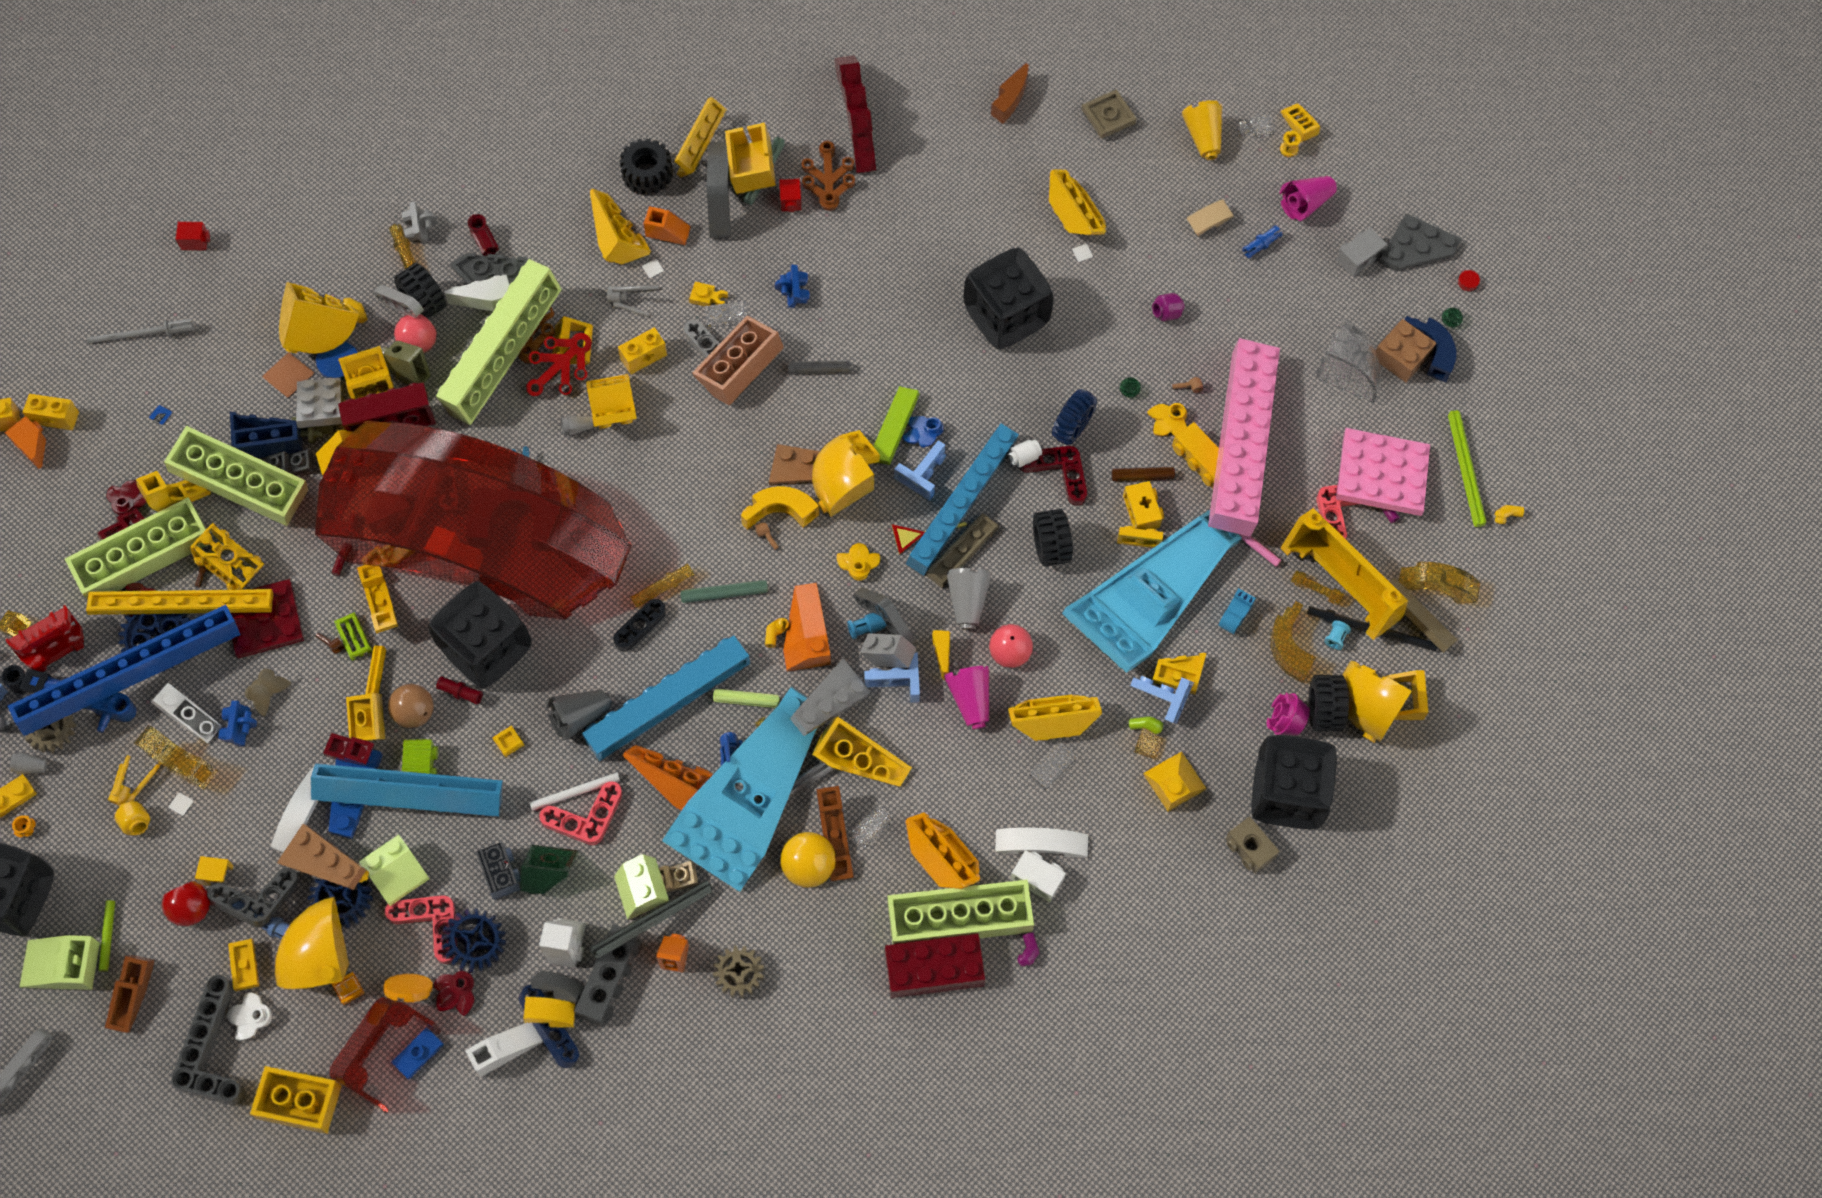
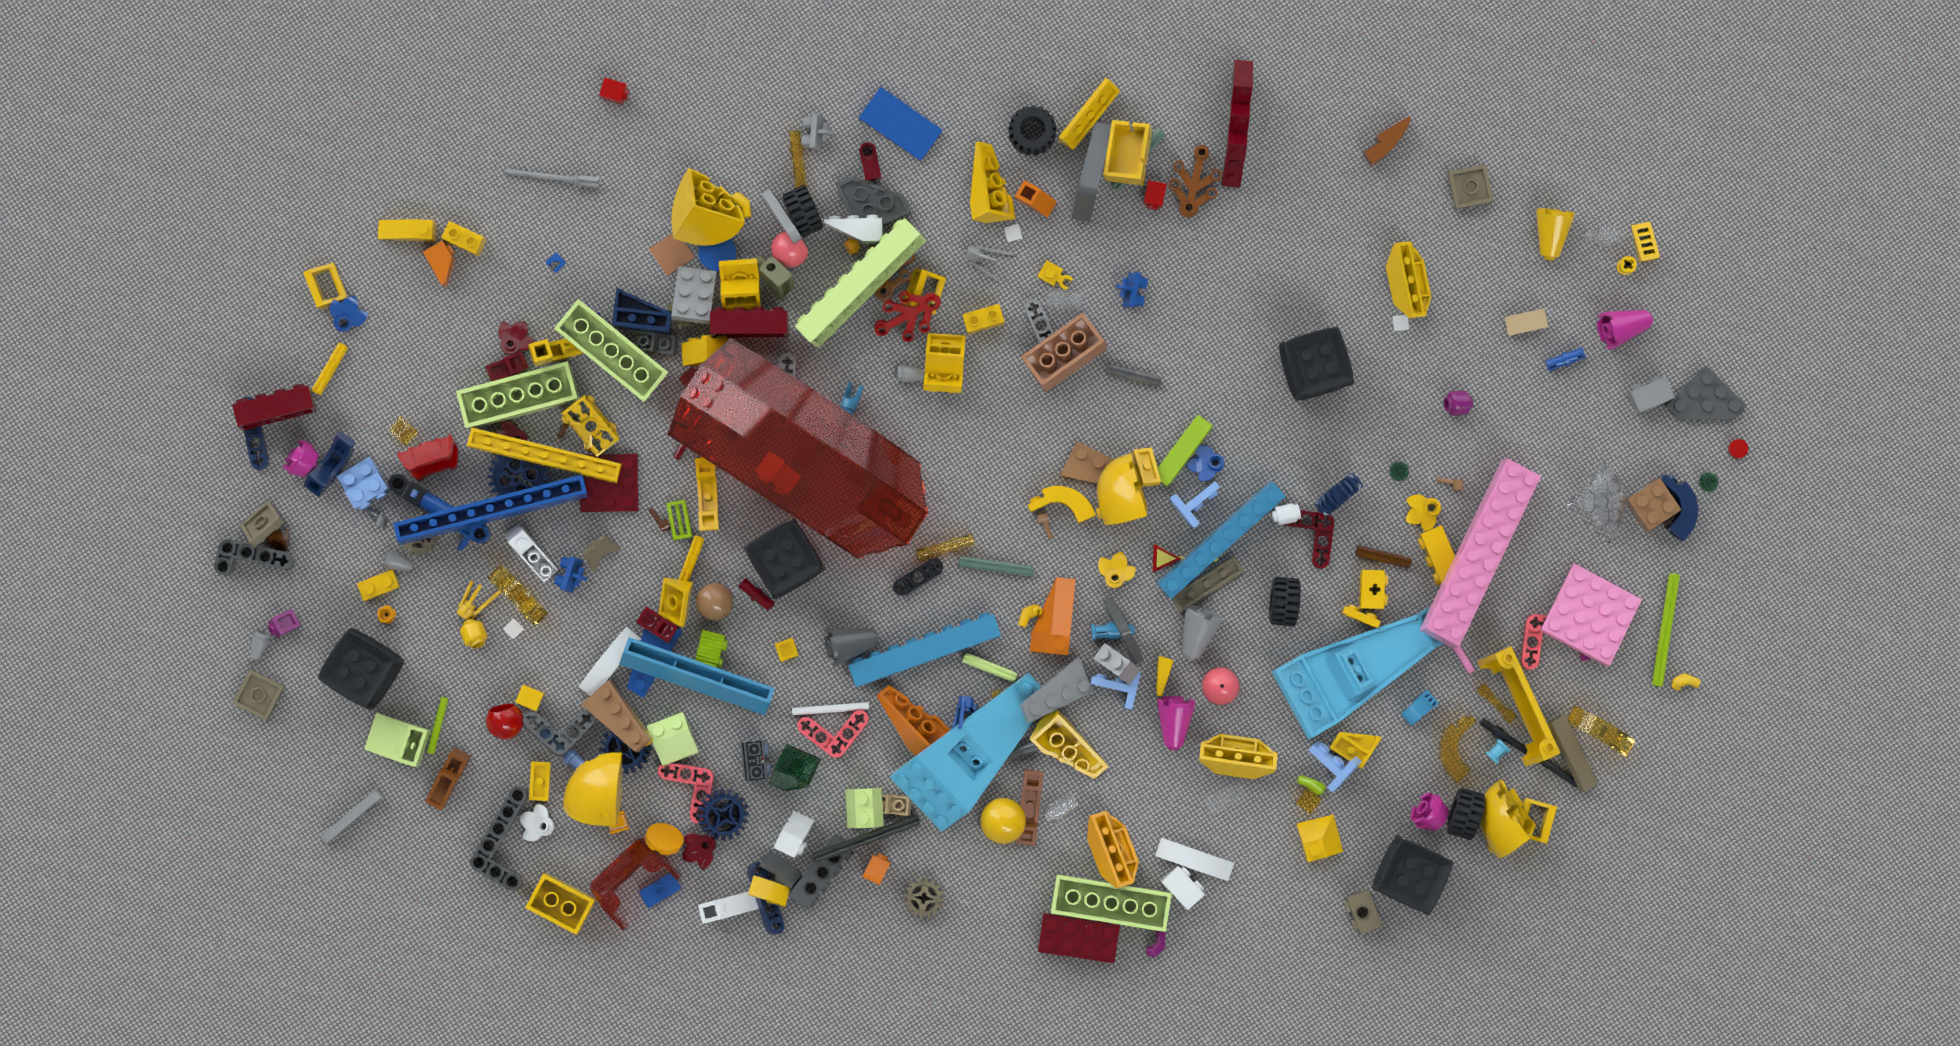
camera: 20 degrees right, 20 degrees up
(480, 317) = (852, 246): none -> light orange plate
(507, 197) = (900, 124): none -> blue tile

